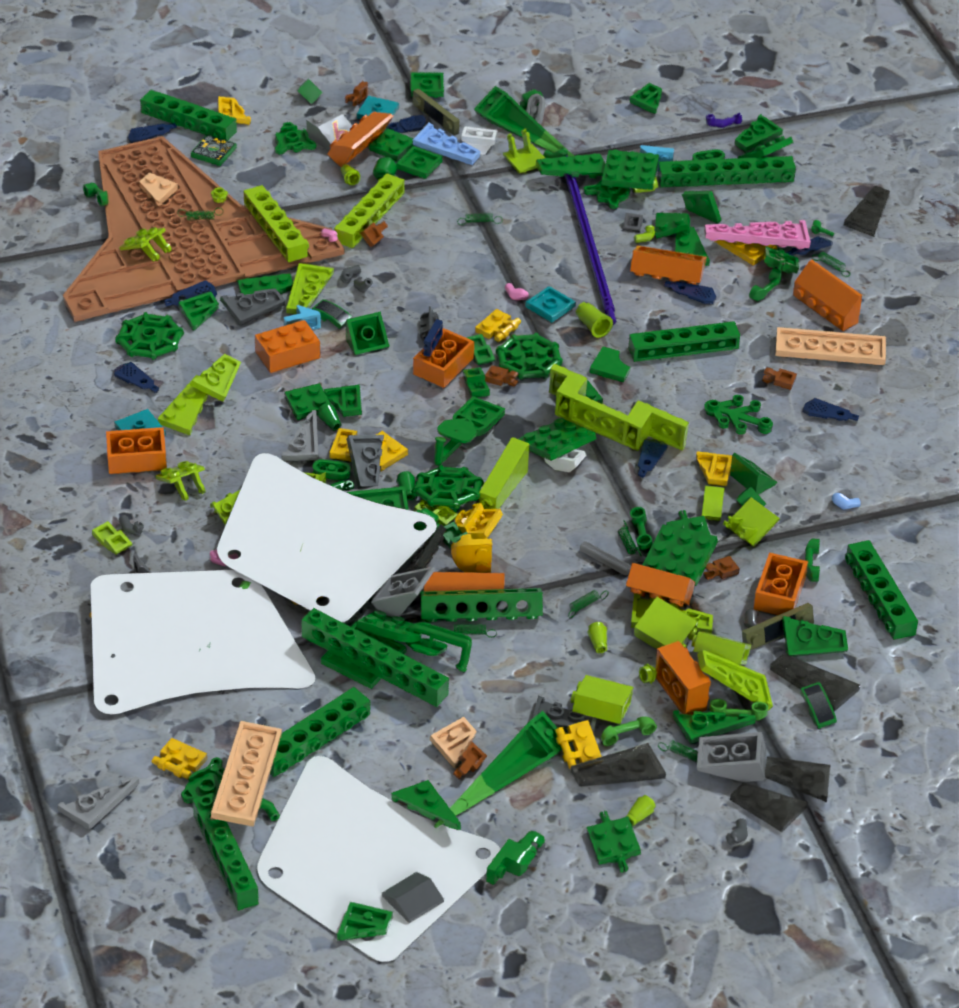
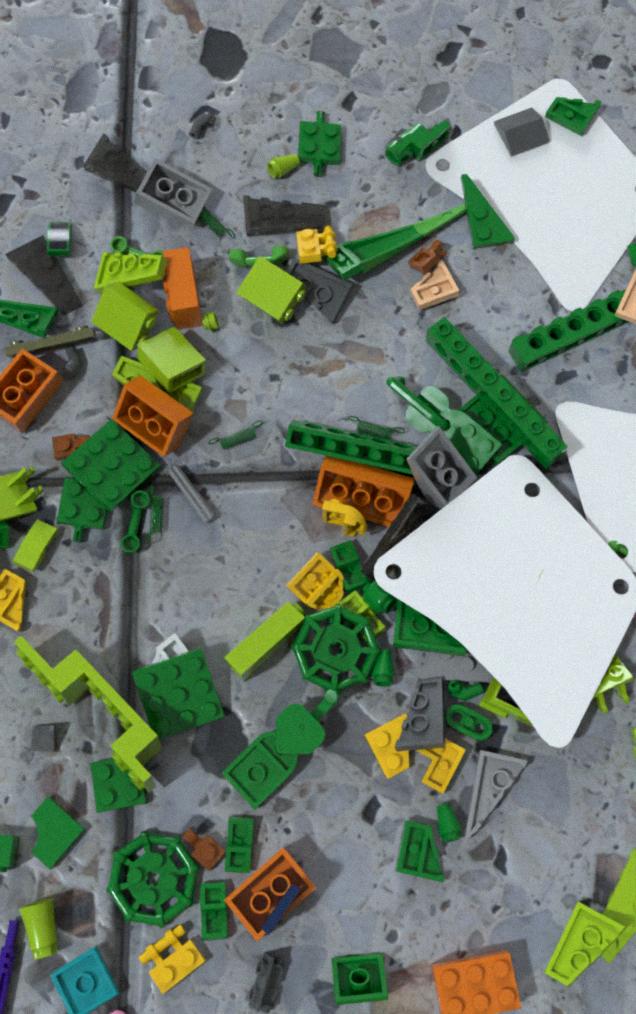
camera: 160 degrees left, 30 degrees up
(305, 400) = (468, 869): green plate -> none
(598, 635) = (243, 381): lime cone -> none
(651, 453) = (73, 640): dark blue piece -> none
(709, 723) = (174, 239): green wing -> none
(768, 805) = (158, 143): clear smoke wing -> none

